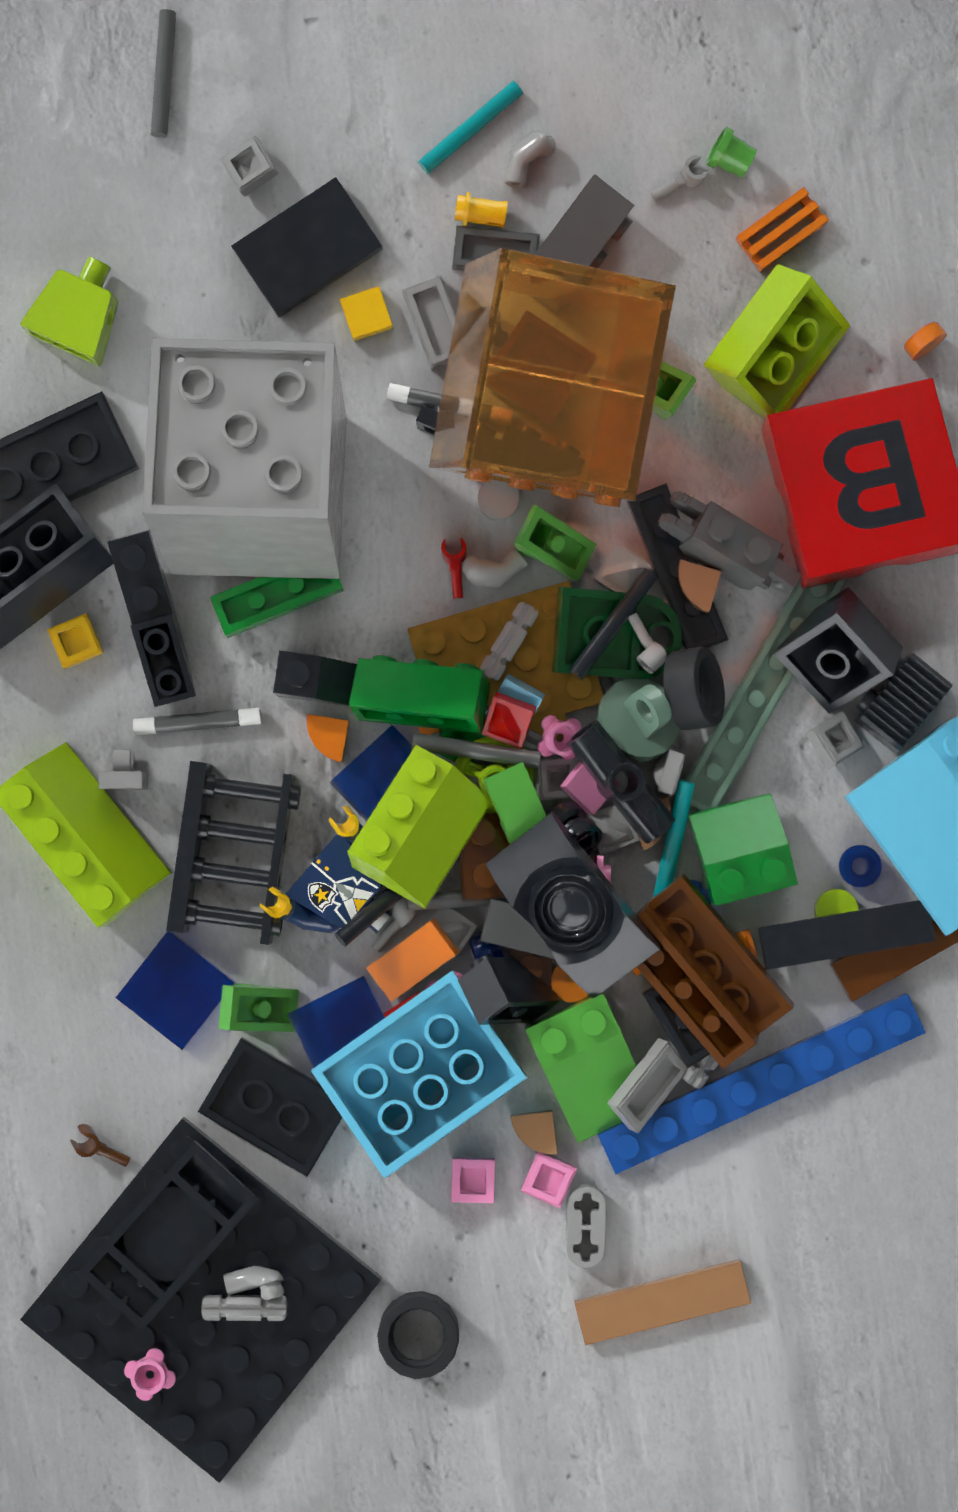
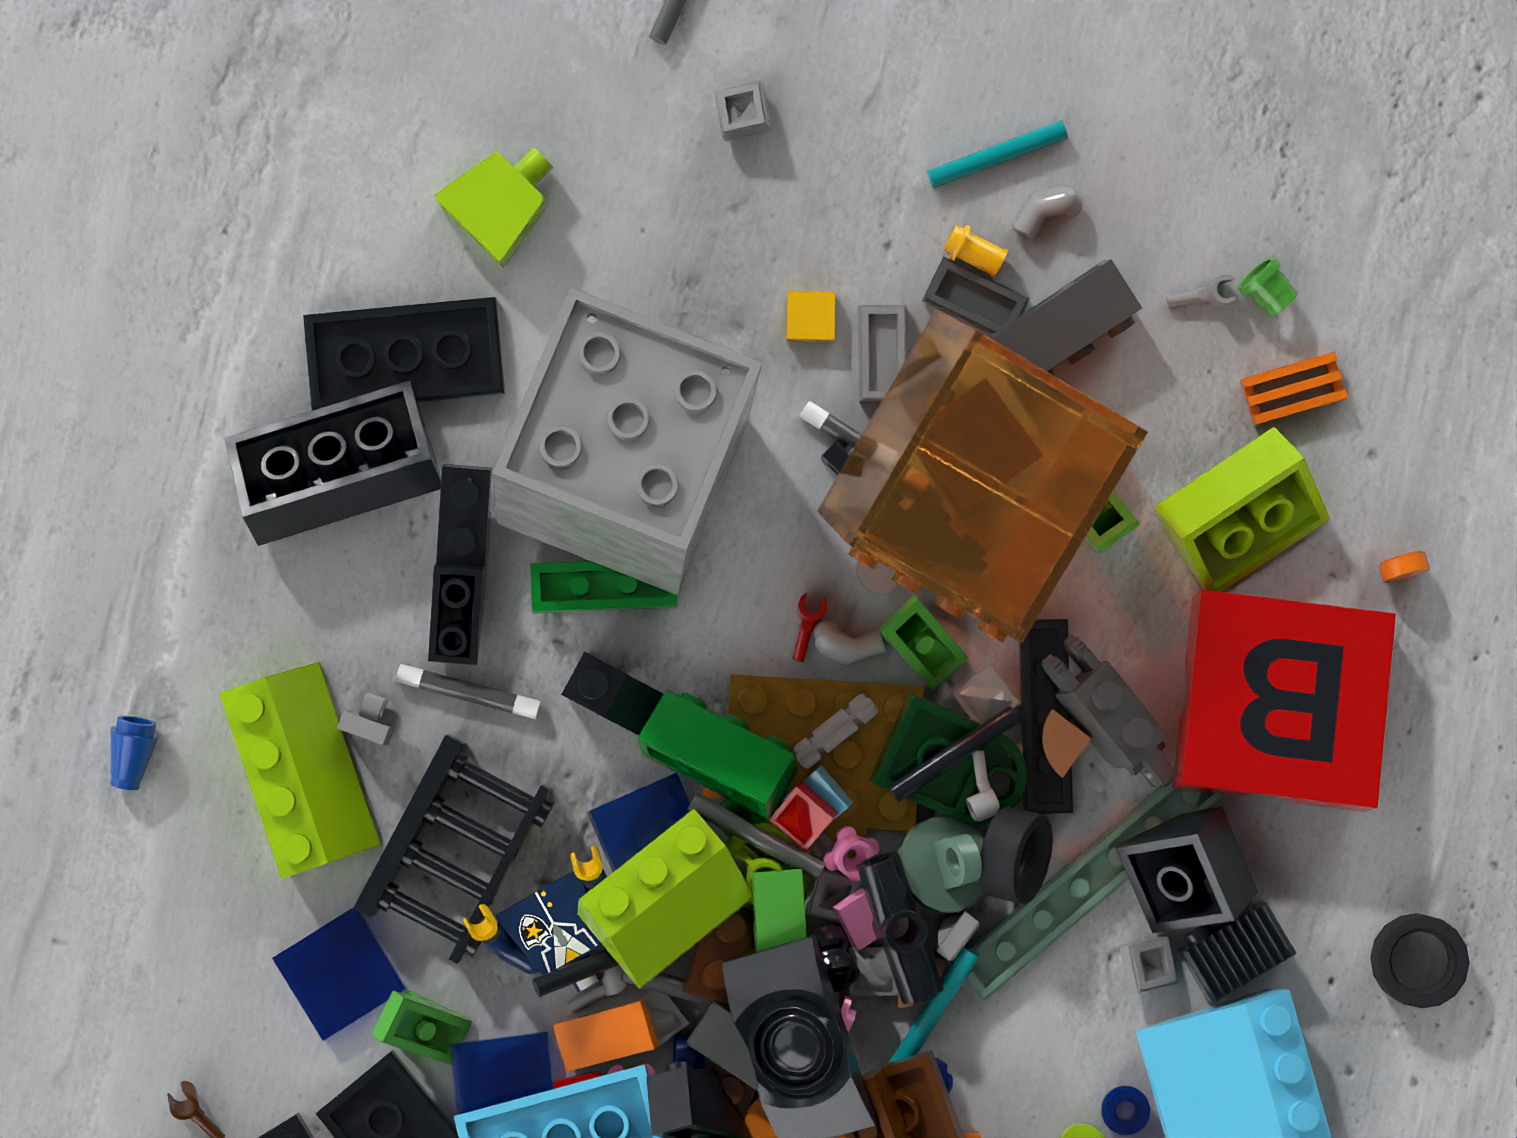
camera: 15 degrees right, 0 degrees up
(75, 641) = (368, 556): yellow tile -> none
(307, 247) = (773, 220): black tile -> none
(328, 735) = (603, 758): orange tile -> none
(742, 849) = (1004, 1047): green slope -> none

